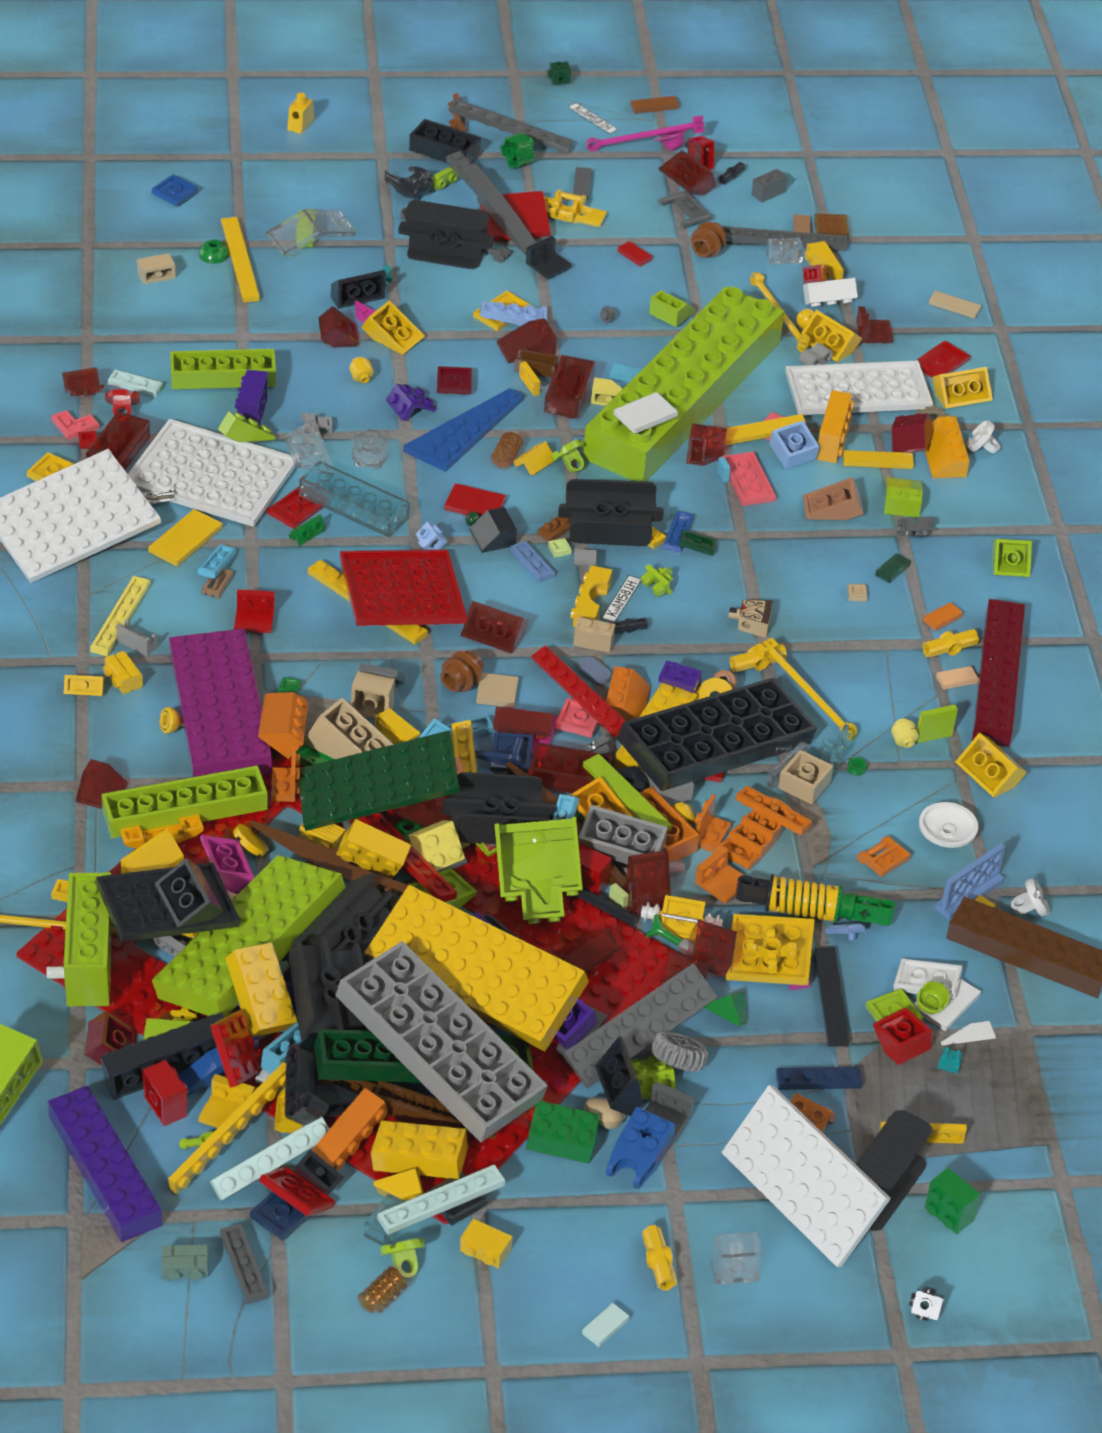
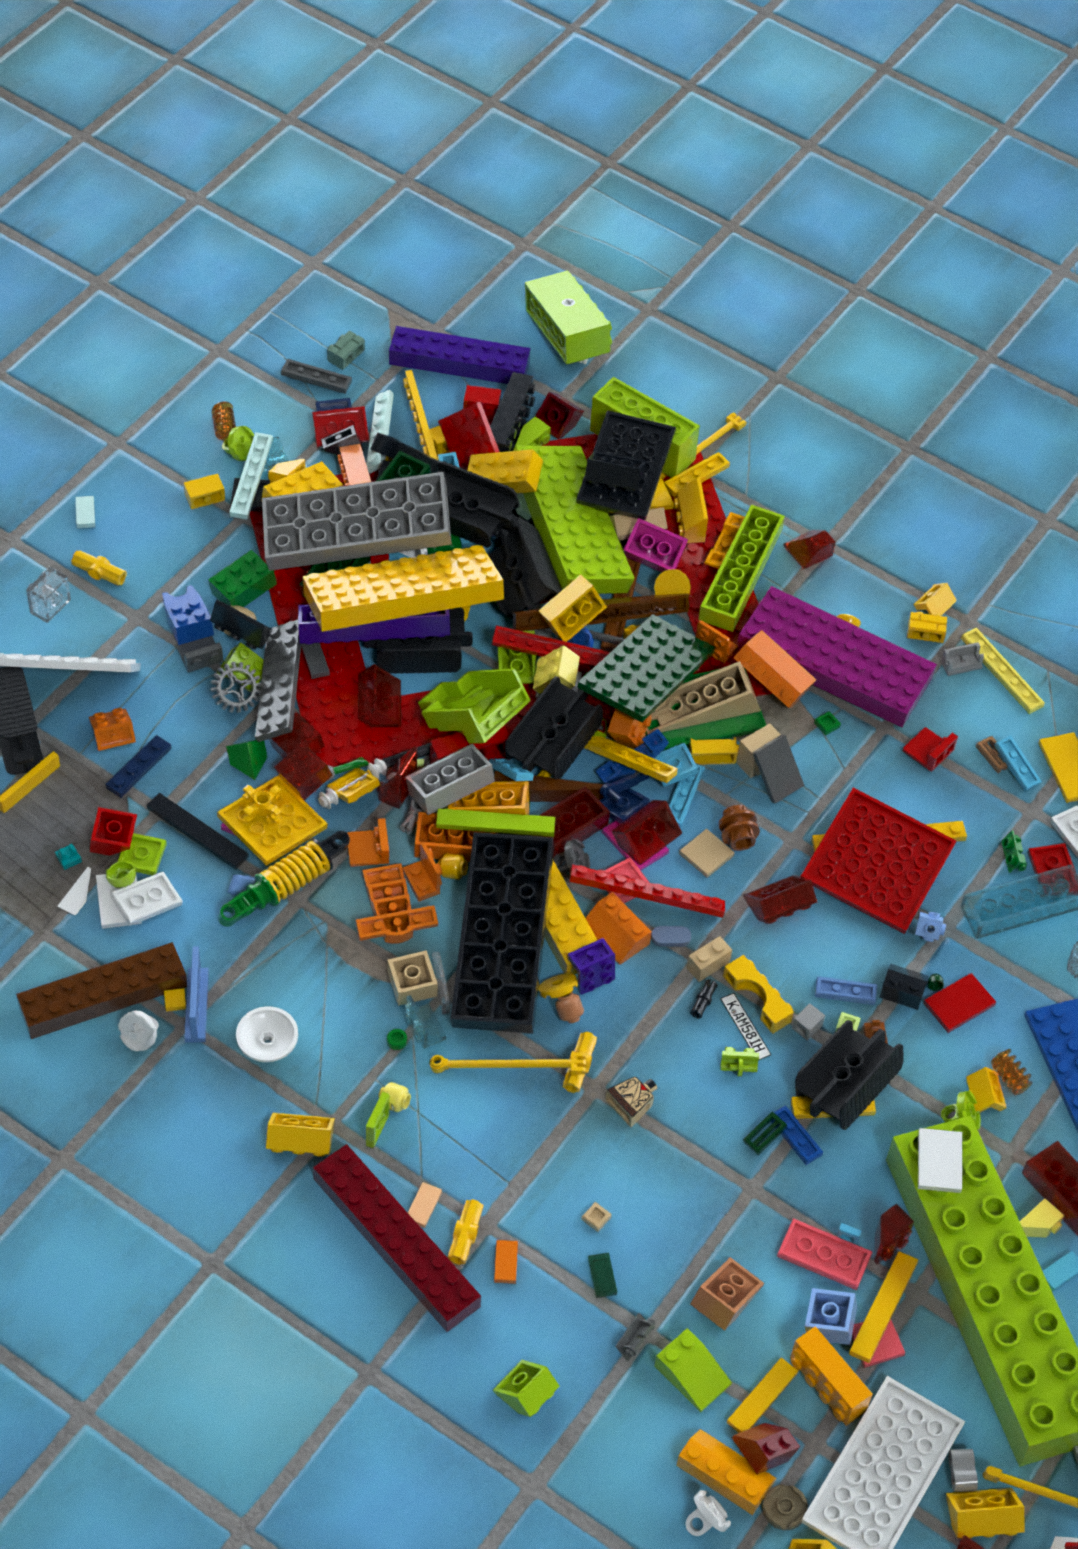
camera: 130 degrees right, 10 degrees up
(194, 1142) = (431, 416): lime piece -> none
(803, 317) = (1032, 1512): yellow piece -> none
(886, 860) = (280, 973): orange plate -> none

